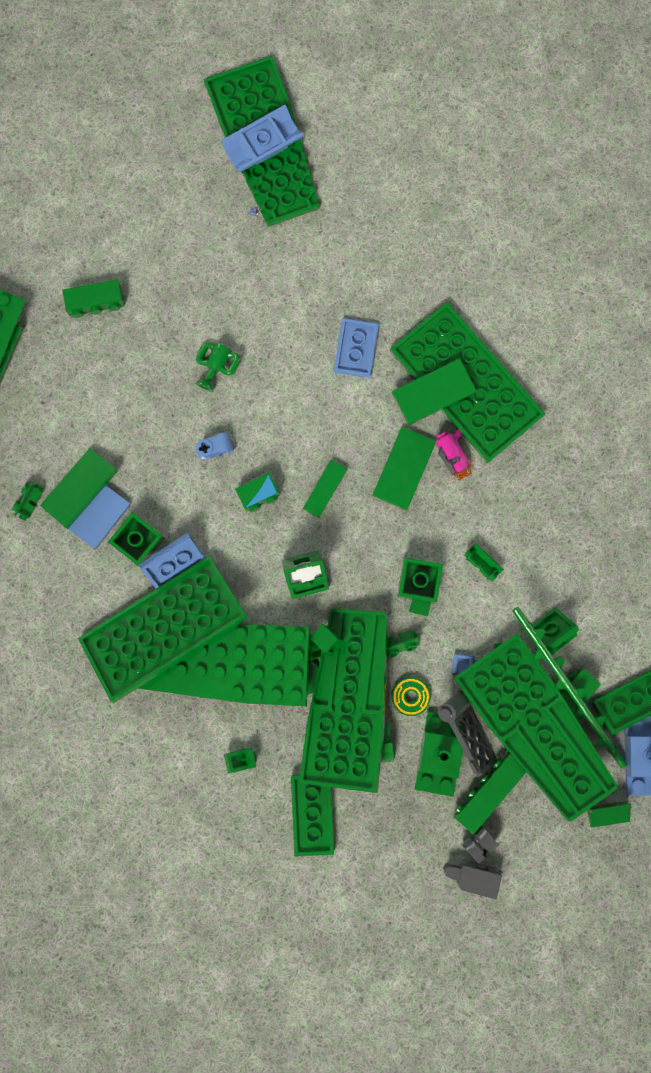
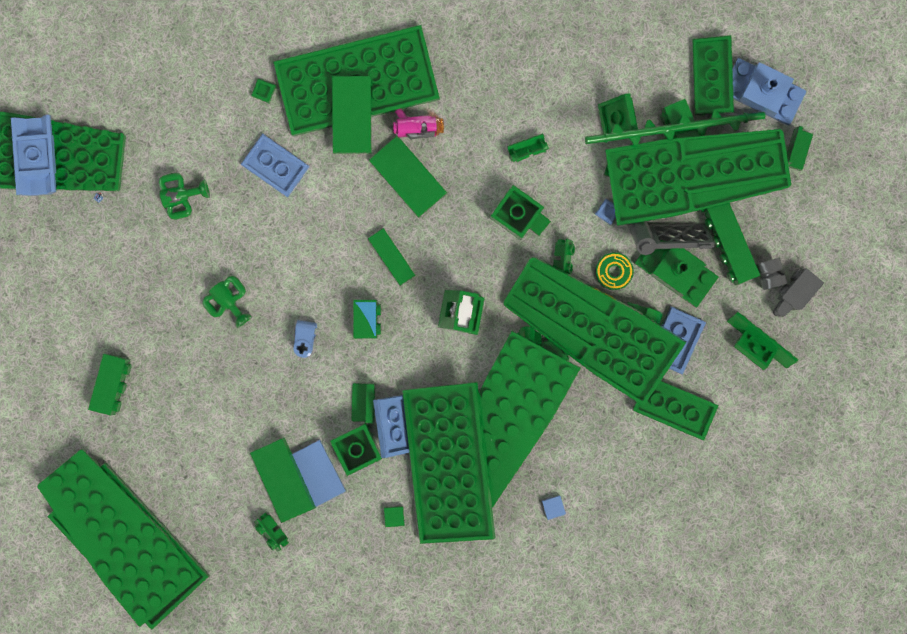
camera: 65 degrees left, 5 degrees up
(92, 603) = (394, 516): none -> green tile
(167, 745) = (553, 507): none -> medium blue tile
(180, 525) = (363, 403): none -> green panel
(240, 760) = (598, 448): green bracket -> none
(288, 277) = (179, 195): none -> green piece
(326, 639) = (530, 321): green panel -> none
(390, 789) = (687, 328): none -> medium blue tile
(407, 865) = (758, 345): none -> green bracket
(417, 306) = (263, 91): none -> green tile

